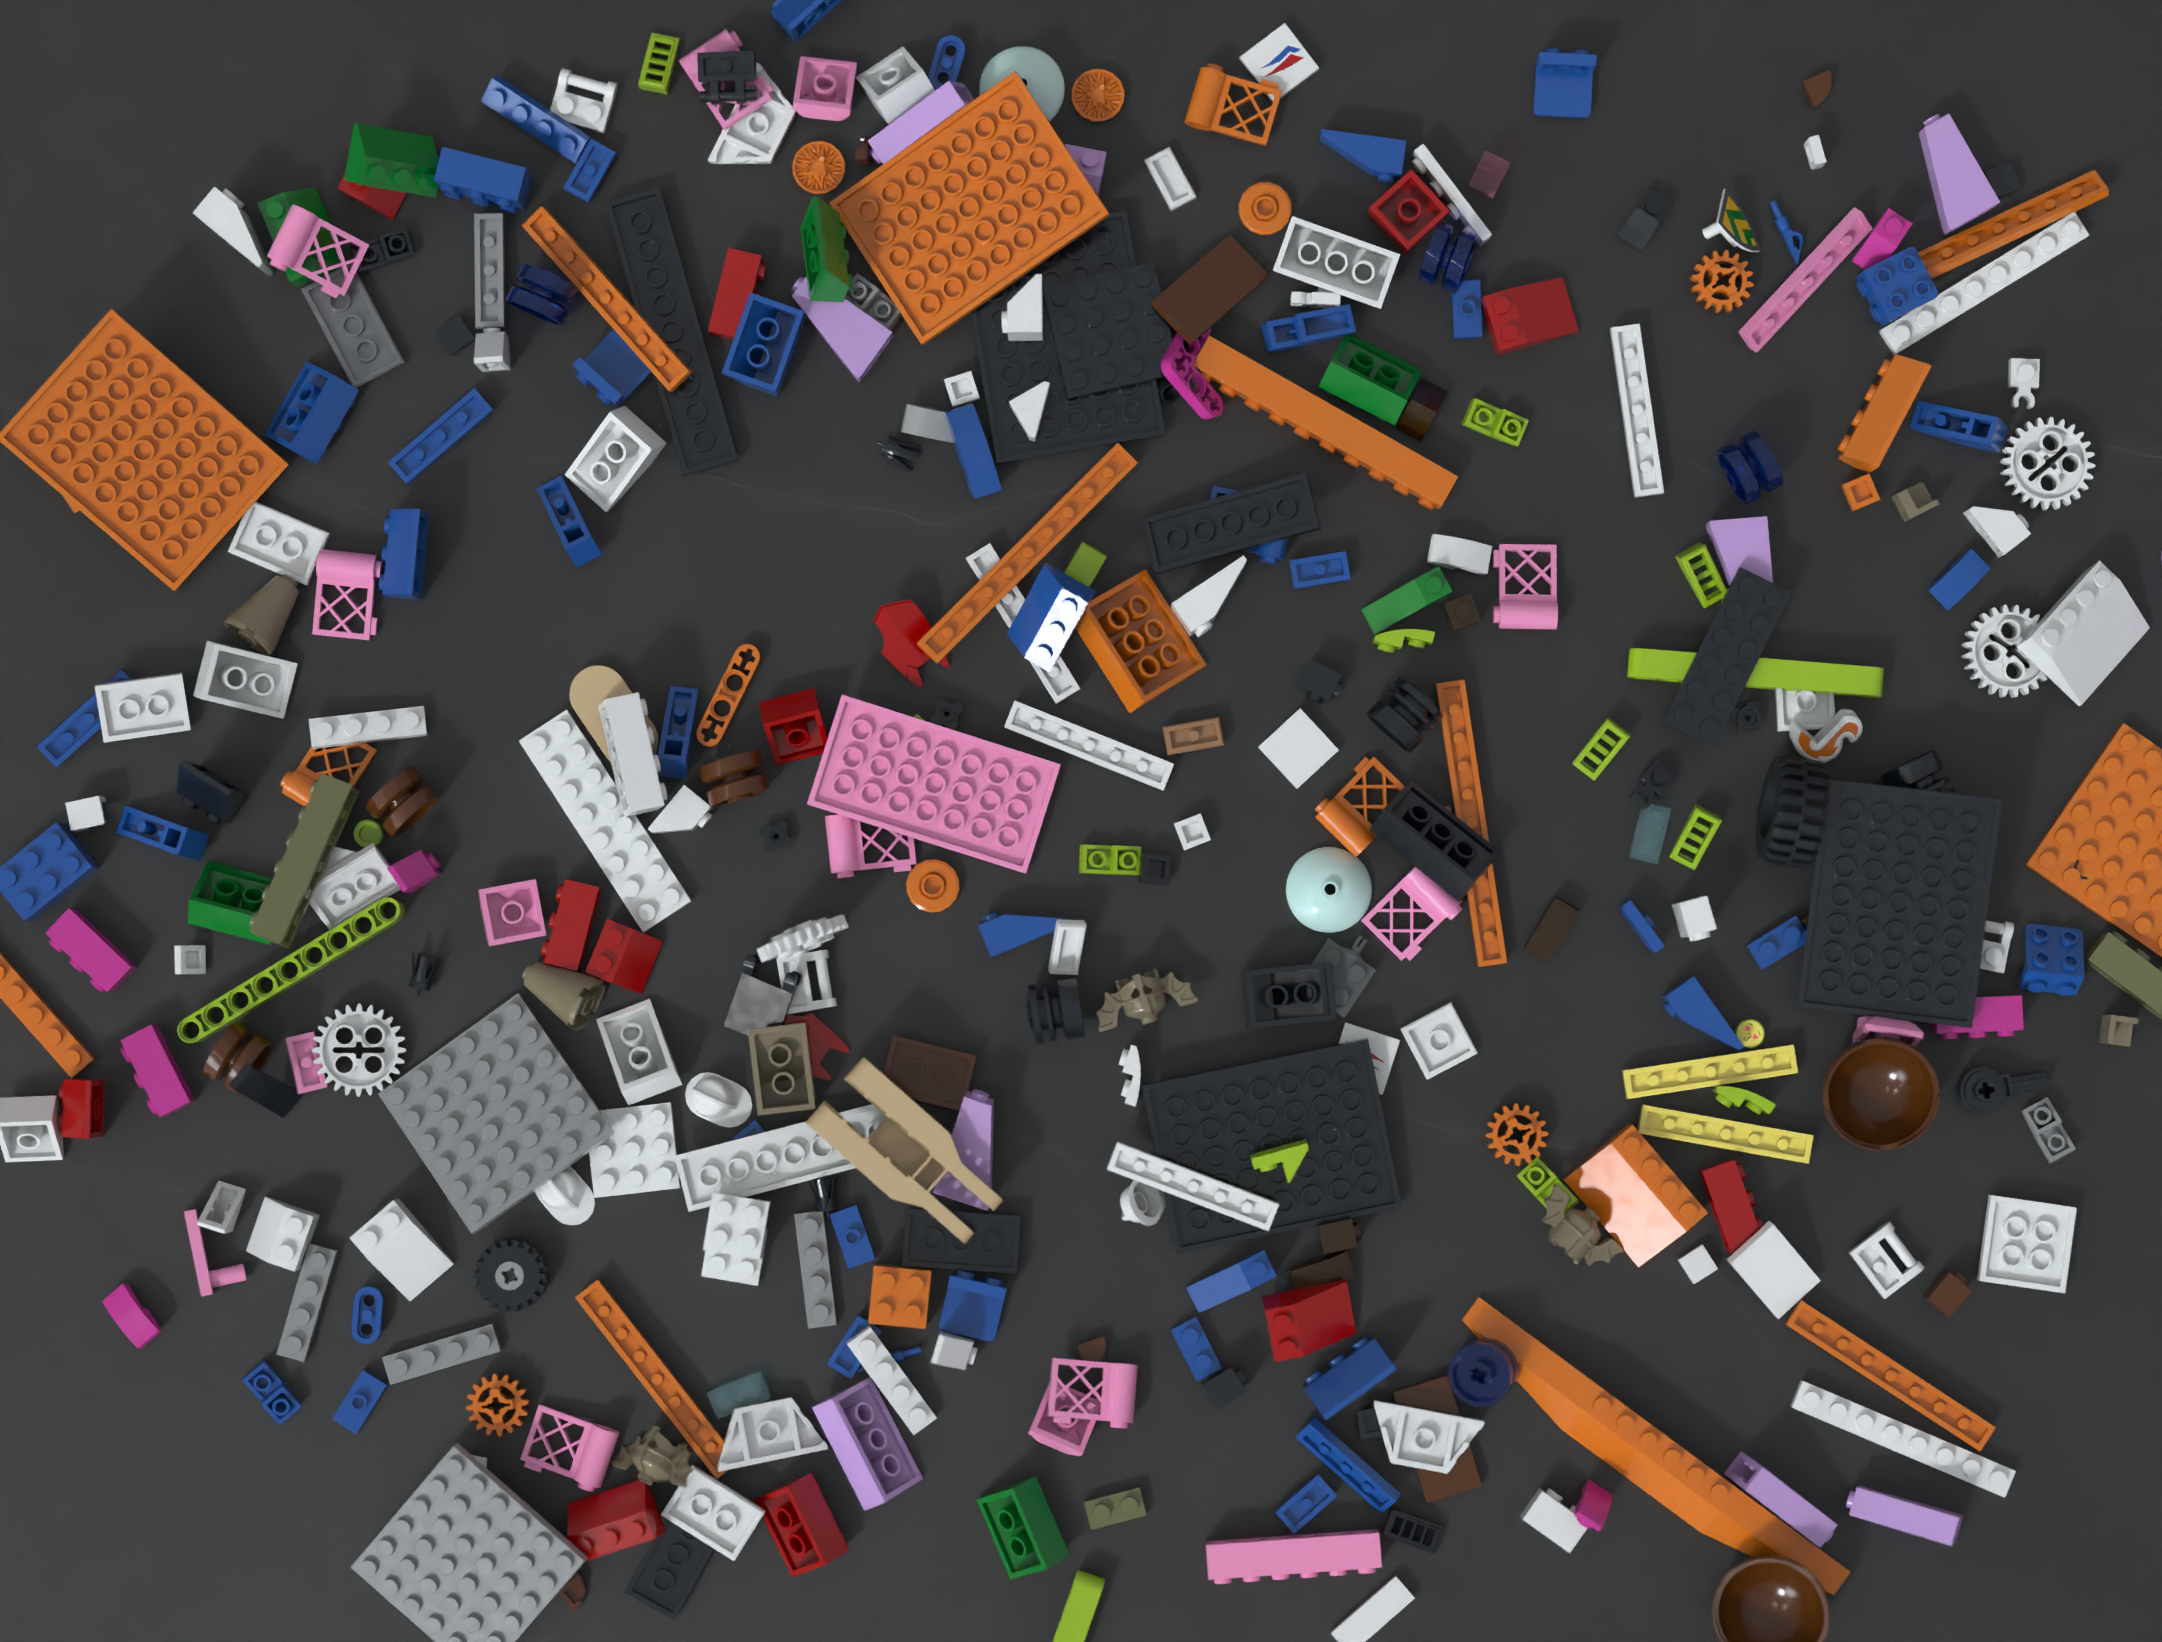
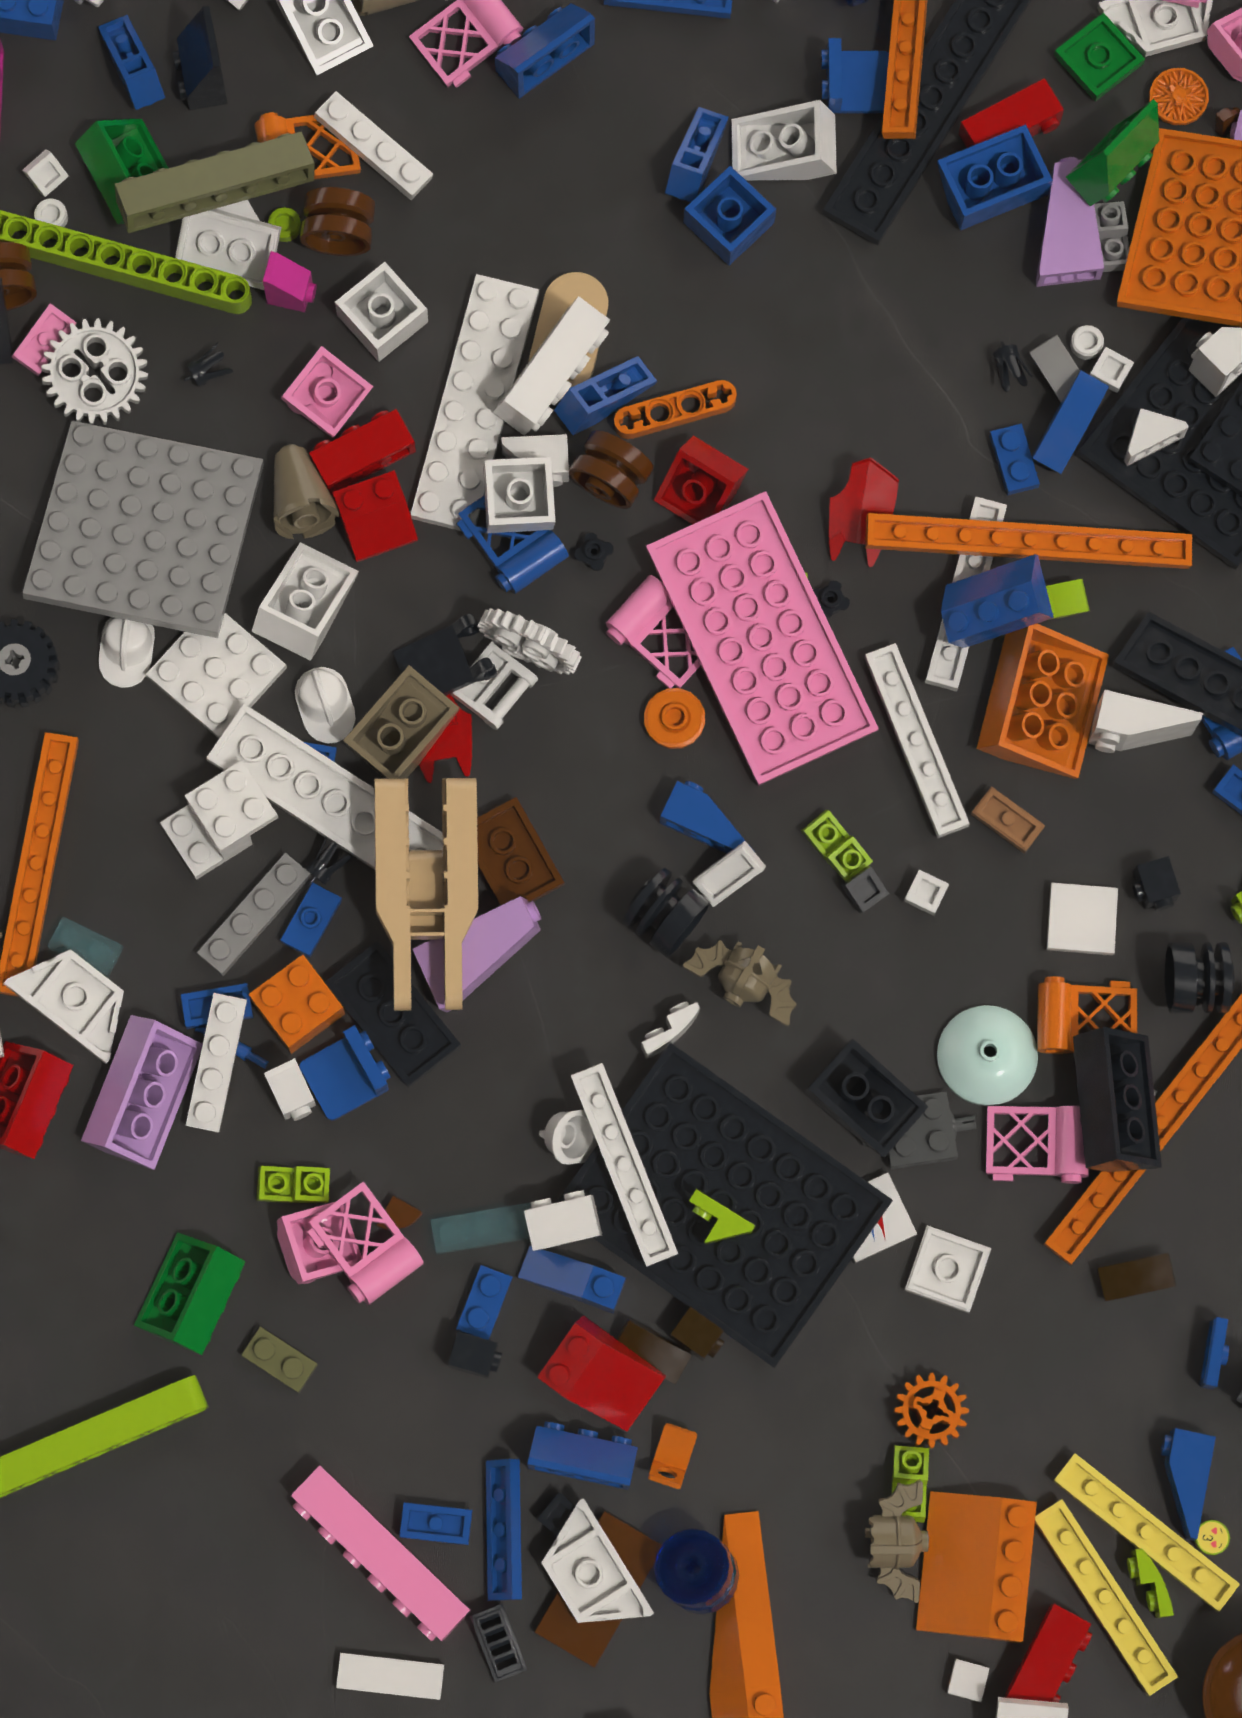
camera: 40 degrees right, 10 degrees down
(221, 980) = (51, 212): none -> white tile
(489, 827) = (381, 311): none -> white brick
(632, 541) = (729, 215): none -> blue brick
(699, 856) = (519, 494): none -> white brick
(742, 886) = (524, 561): none -> blue piece
(744, 194) = (1099, 57): none -> green plate
(928, 386) = (1087, 342): none -> white tile
(962, 507) = (1014, 459): none -> blue plate
(1012, 1400) = (293, 1184): none -> lime slope
(1148, 1306) = (480, 1228): none -> clear light blue plate
(1192, 1257) = (562, 1221): none -> white brick
(1398, 1320) = (672, 1455): none -> orange bracket

